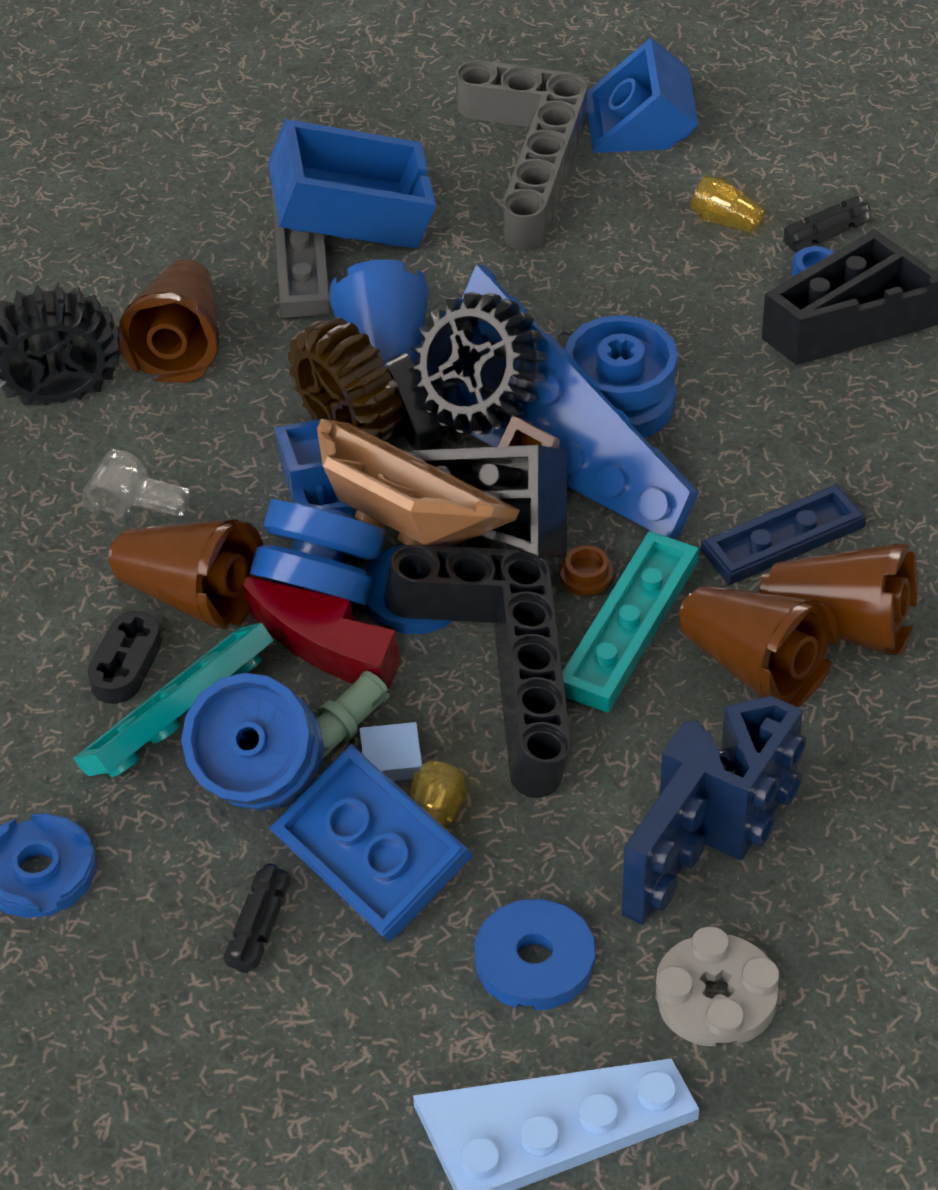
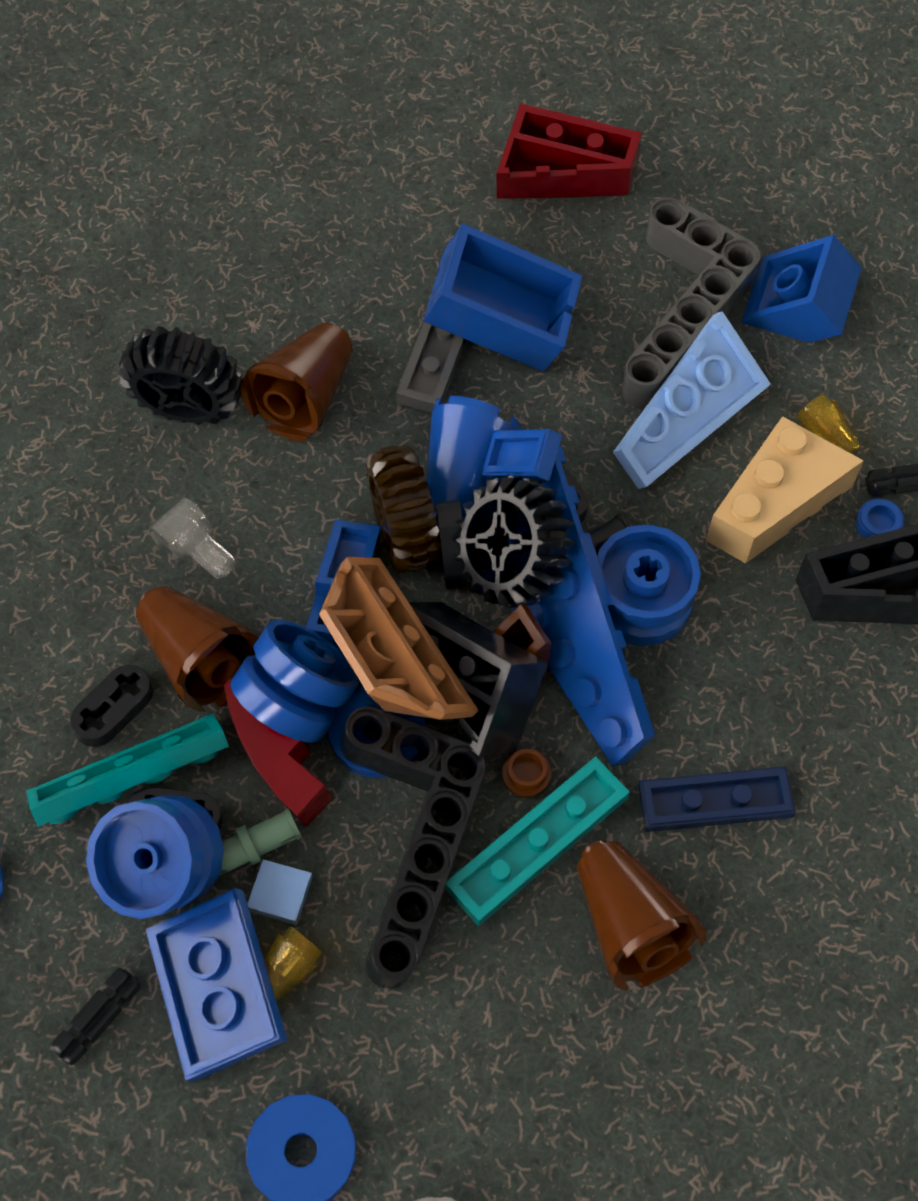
camera: 20 degrees right, 15 degrees up
(348, 59) = (565, 157): none -> dark red wedge
(455, 276) = (522, 454): none -> blue tile
(583, 222) = (696, 398): none -> light blue wing
(710, 262) = (779, 489): none -> tan wedge
(713, 798) = (572, 1054): dark blue piece -> none
(862, 587) = (735, 901): reddish brown cone -> none

